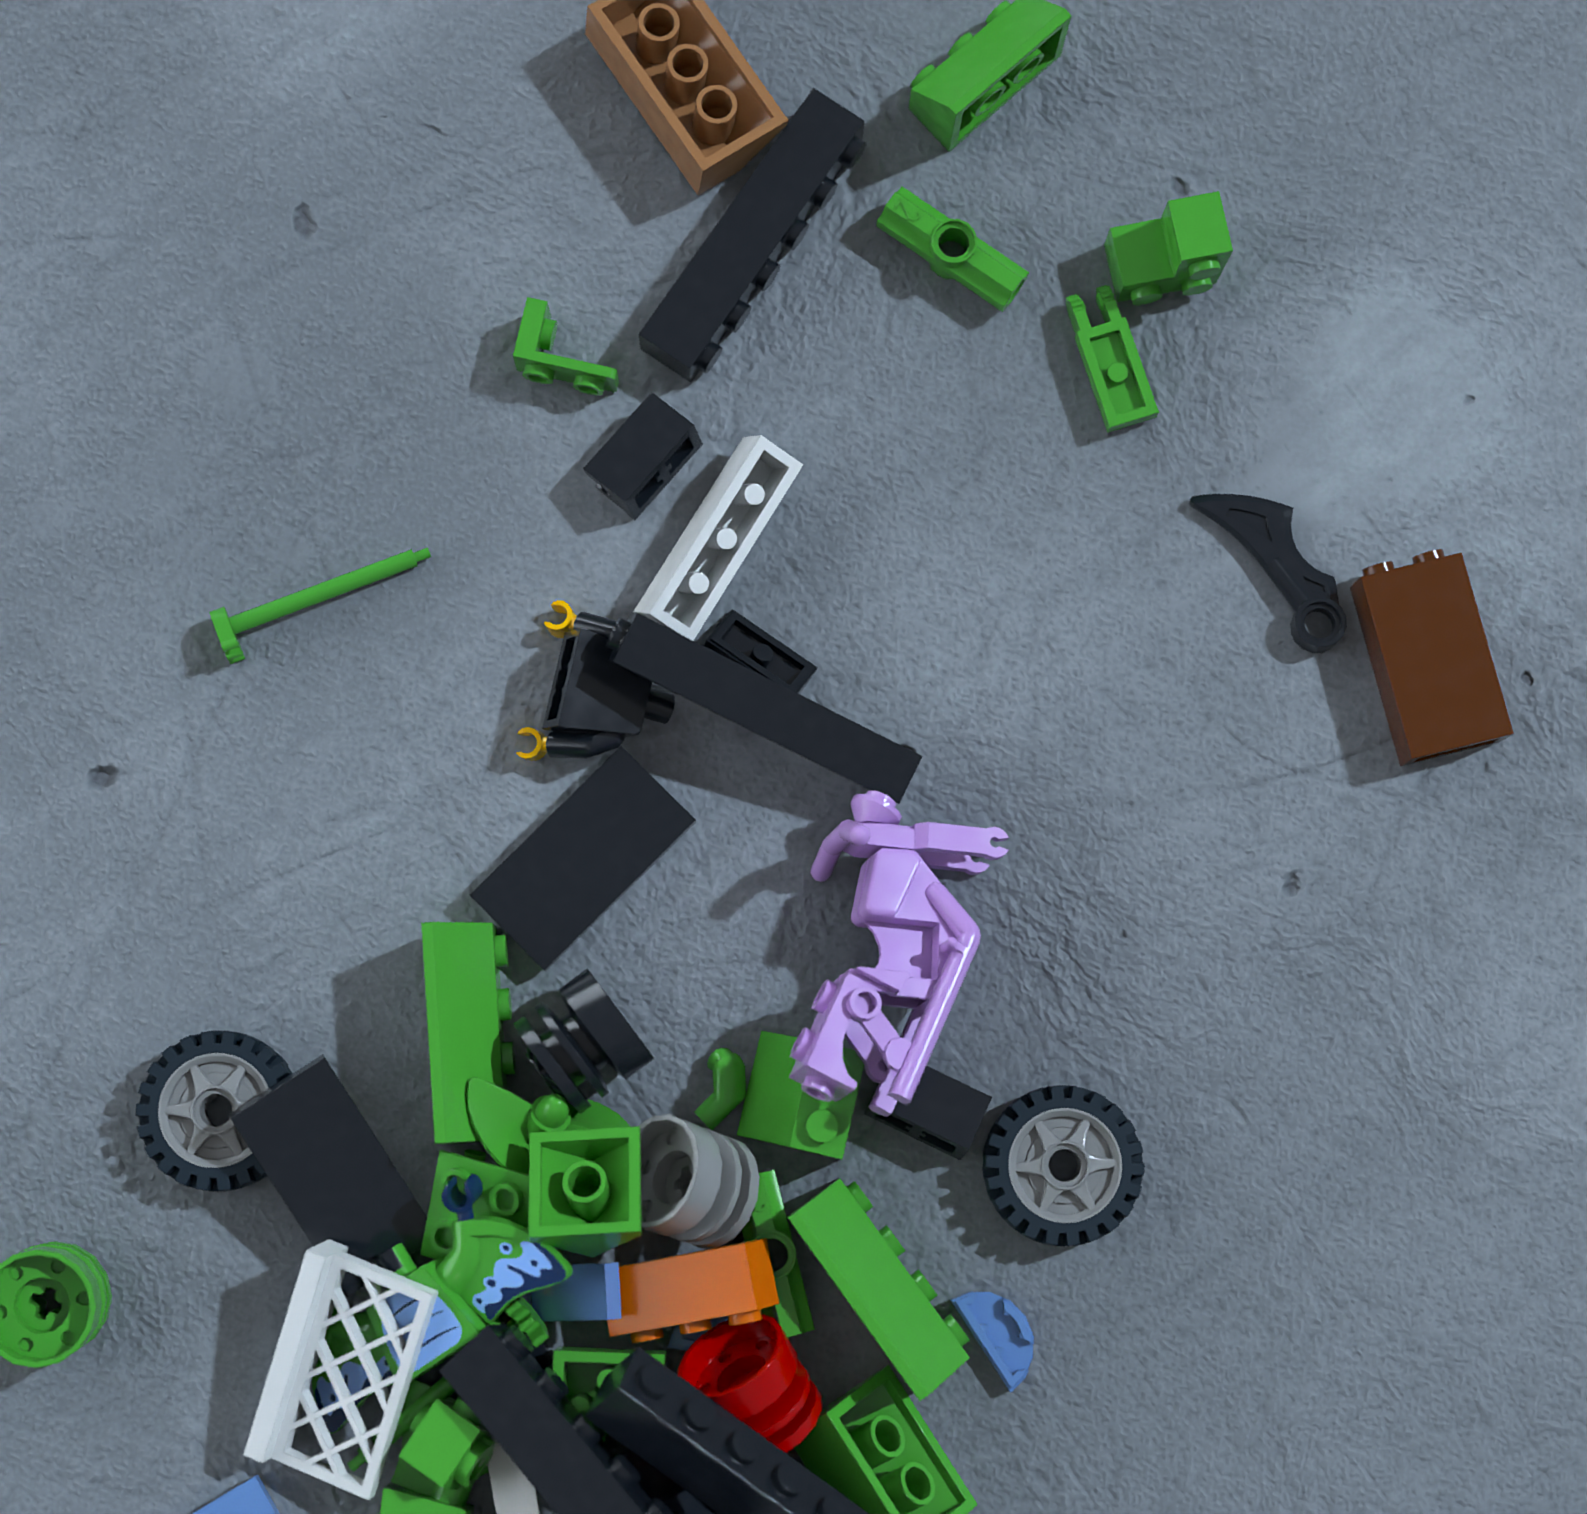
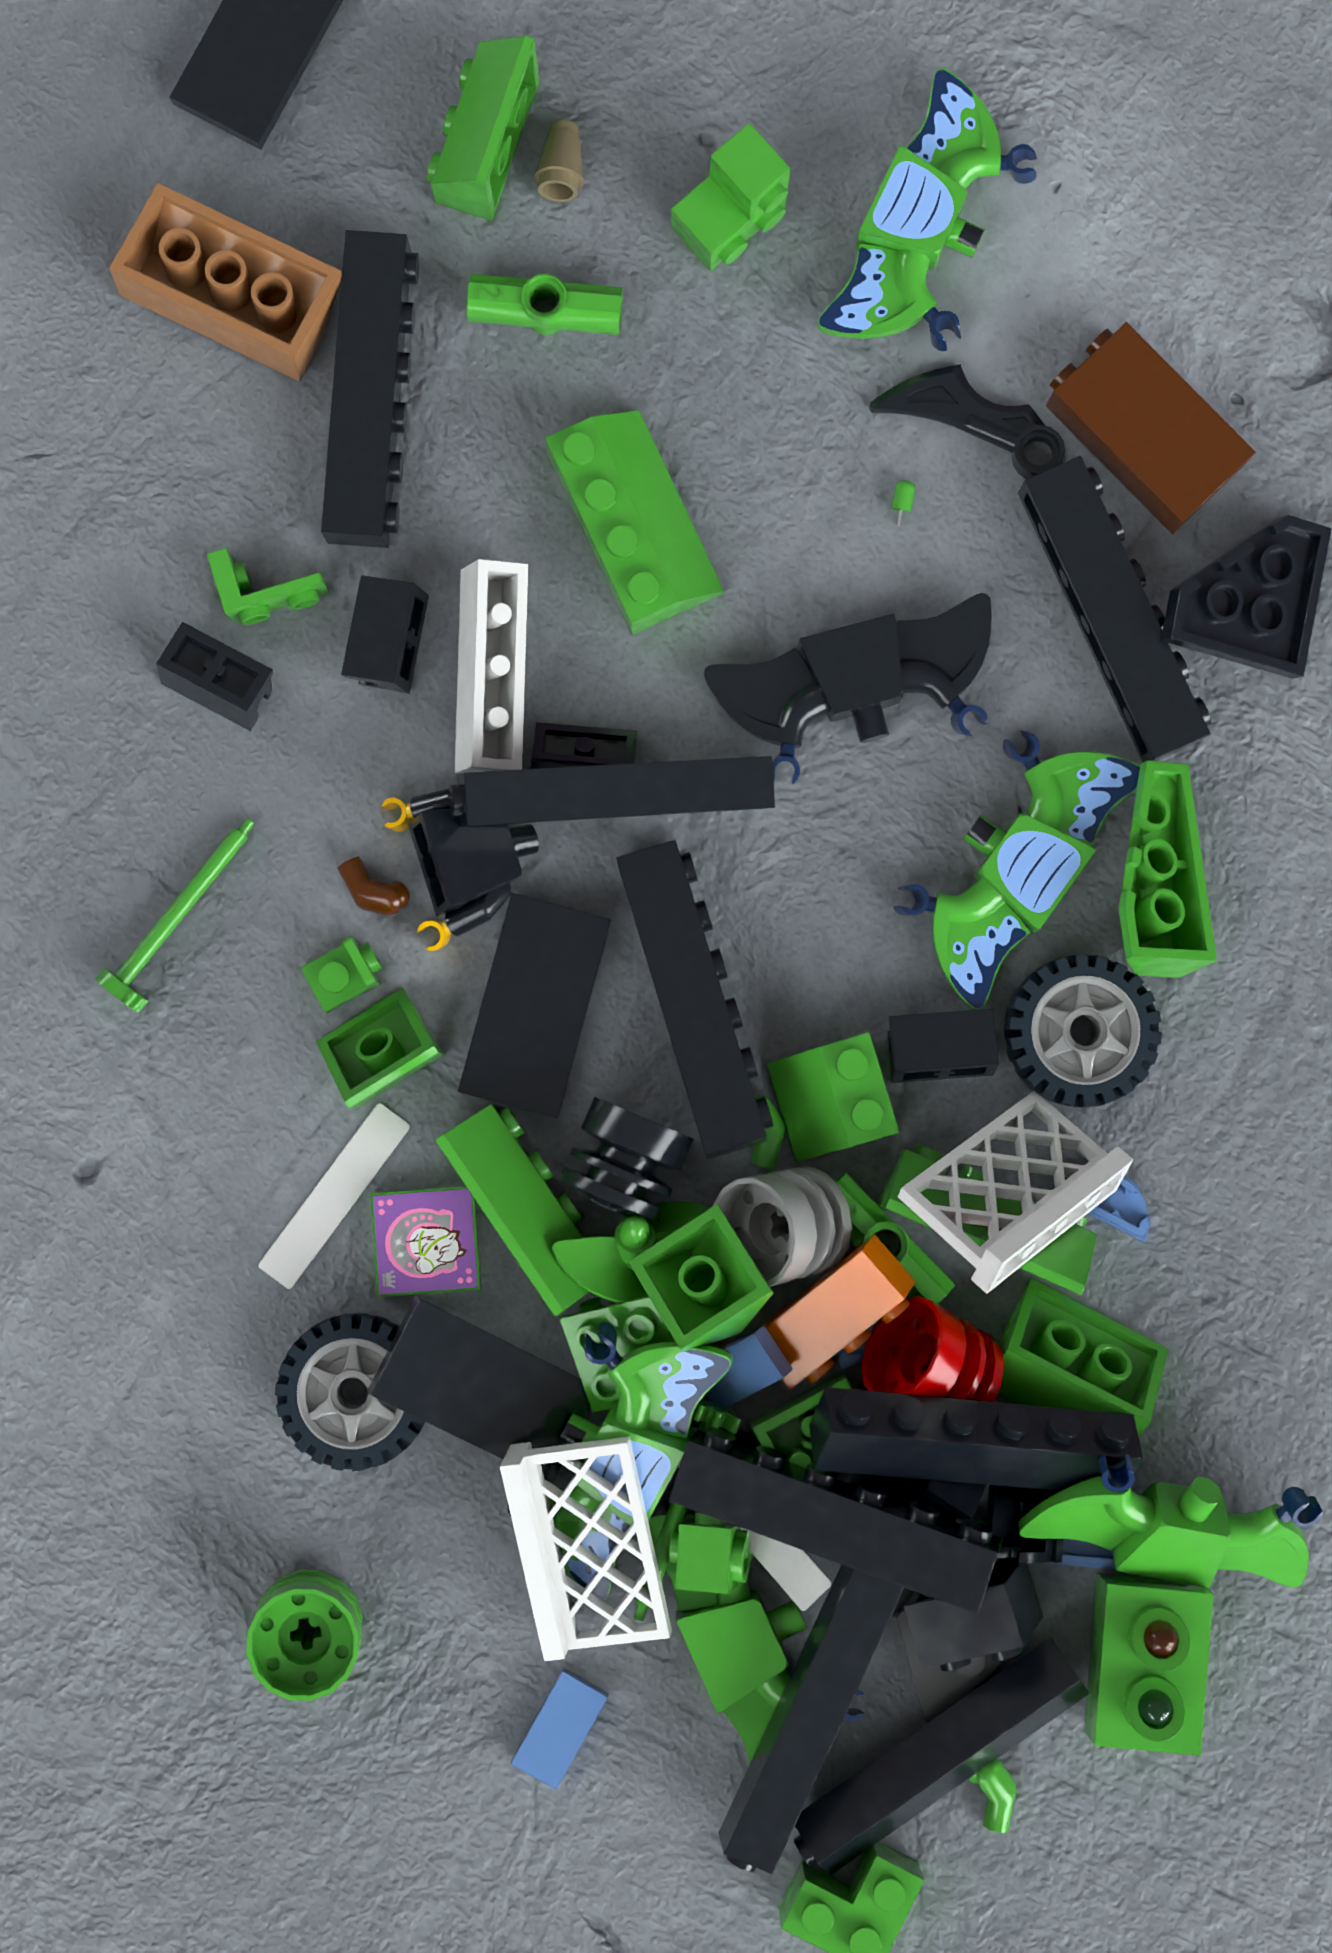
camera: 25 degrees left, 5 degrees up
(305, 926) = (334, 1196): none -> white sticker
(362, 1013) = (425, 1241): none -> tile
(422, 818) = (378, 1049): none -> bright green slope
(430, 733) = (343, 974): none -> bright green bracket
(472, 407) = (215, 675): none -> black hinge
(497, 677) = (372, 894): none -> reddish brown arm
(725, 934) = (692, 1000): none -> black brick
(918, 1313) = (1039, 1223): none -> white fence
(921, 943) = (868, 919): lavender piece -> none
(922, 478) = (633, 518): none -> bright green slope
(1036, 136) = (560, 163): none -> dark tan cone
(1042, 729) = (857, 675): none -> black torso
(1096, 985) = (1024, 866): none -> torso
(1112, 363) = (737, 325): bright green hinge -> none
(1174, 596) = (903, 498): none -> bright green piece
(1213, 1068) = (1164, 883): none -> bright green wedge
(1307, 804) = (1114, 610): none -> black brick
(1329, 358) = (919, 216): none -> torso
(1440, 865) = (1255, 599): none -> black plate

